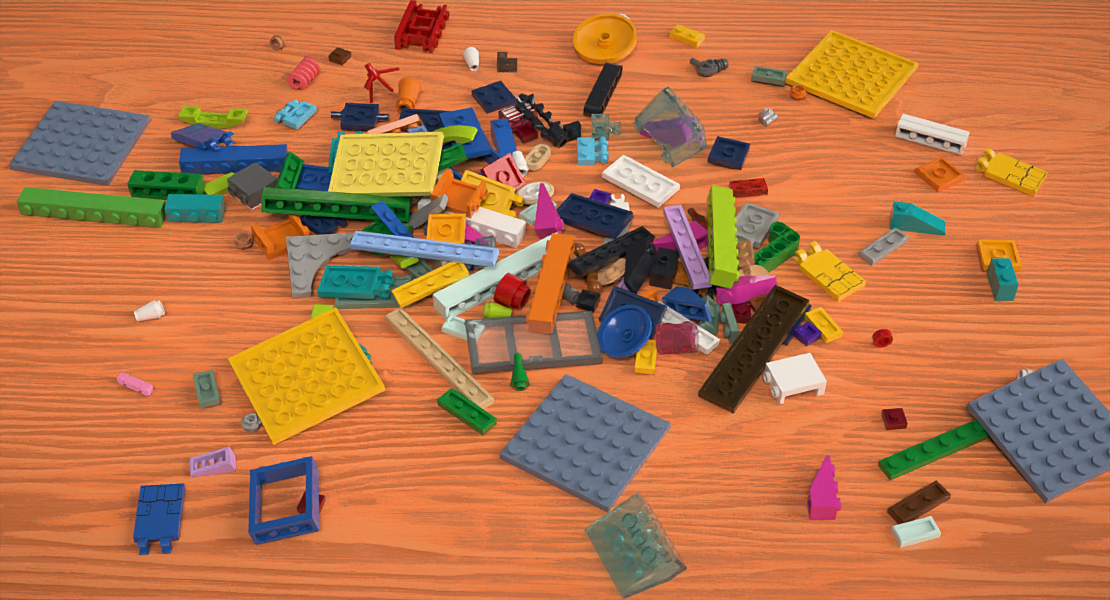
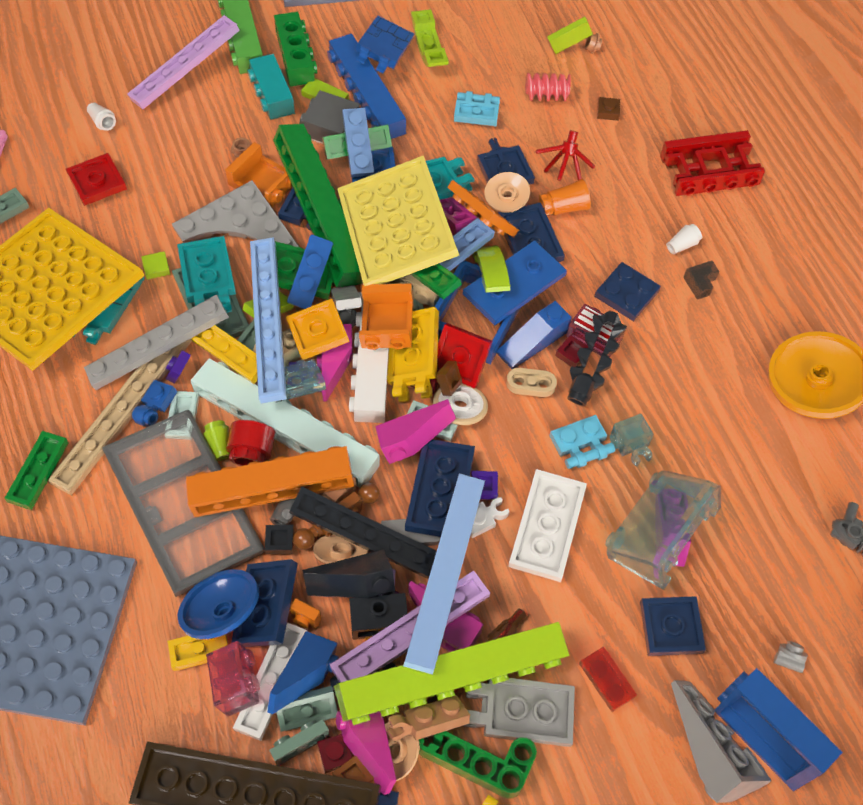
camera: 65 degrees right, 15 degrees up
(136, 246) = (183, 62): none -> lavender plate
(215, 327) = (96, 179): none -> red plate
(267, 46) = (570, 35): none -> lime tile
(295, 169) = (358, 142): none -> medium blue plate
(384, 115) = (507, 184): none -> light nougat dish
(400, 320) = (156, 342): none -> light grey plate
(425, 317) = (176, 366): none -> dark purple plate
(444, 334) = (156, 398): none -> blue plate
(519, 187) = (449, 378): none -> reddish brown plate
(519, 378) = (104, 507): green cone -> none
(520, 162) = (500, 366): white cone -> none
(572, 130) = (602, 403): black plate -> none
(603, 89) = (714, 411): black beam -> none
(659, 216) = (444, 575): none -> light blue tile
(814, 159) = (719, 760): none -> light grey wedge
(836, 109) = (776, 729): none -> blue window

